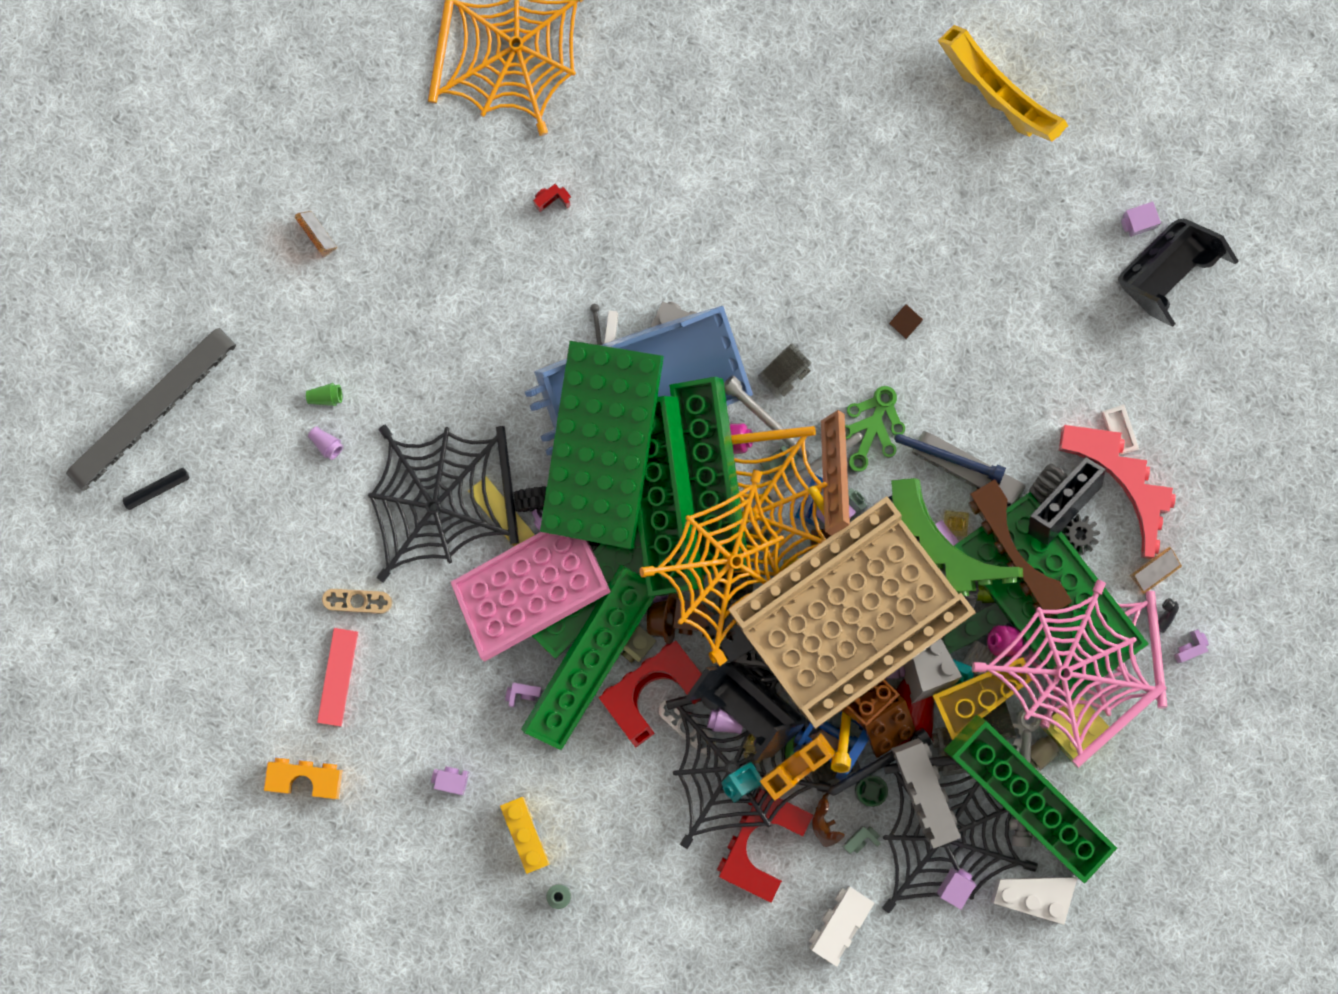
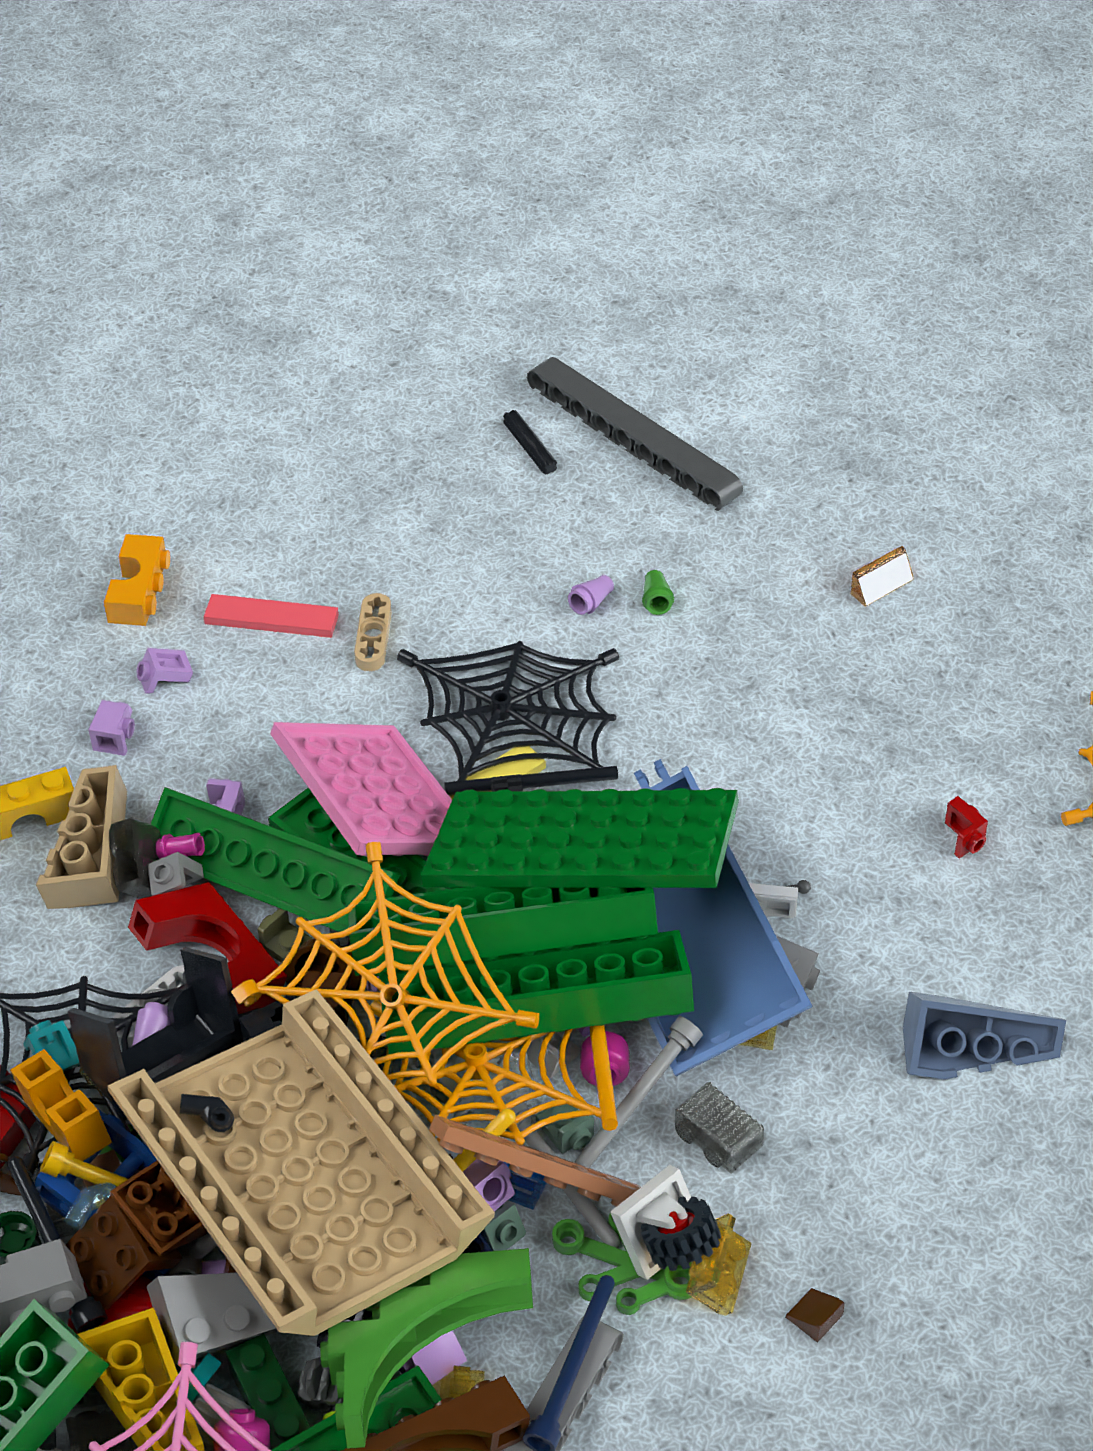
camera: 90 degrees right, 35 degrees down
(393, 750) = (163, 666): none -> lavender bracket
(564, 783) = (82, 861): none -> tan wedge
(572, 718) = (187, 845): none -> dark pink pin
(579, 747) = (133, 848): none -> clear smoke brick
(596, 722) = (173, 873): none -> light grey bracket
(714, 219) = (961, 1034): none -> sand blue wedge
(819, 667) = (210, 1109): none -> black arm
(860, 739) = (87, 1201): none -> clear light blue arm
(870, 399) = (665, 1225): none -> plate
(880, 374) = (719, 1277): none -> clear yellow bracket

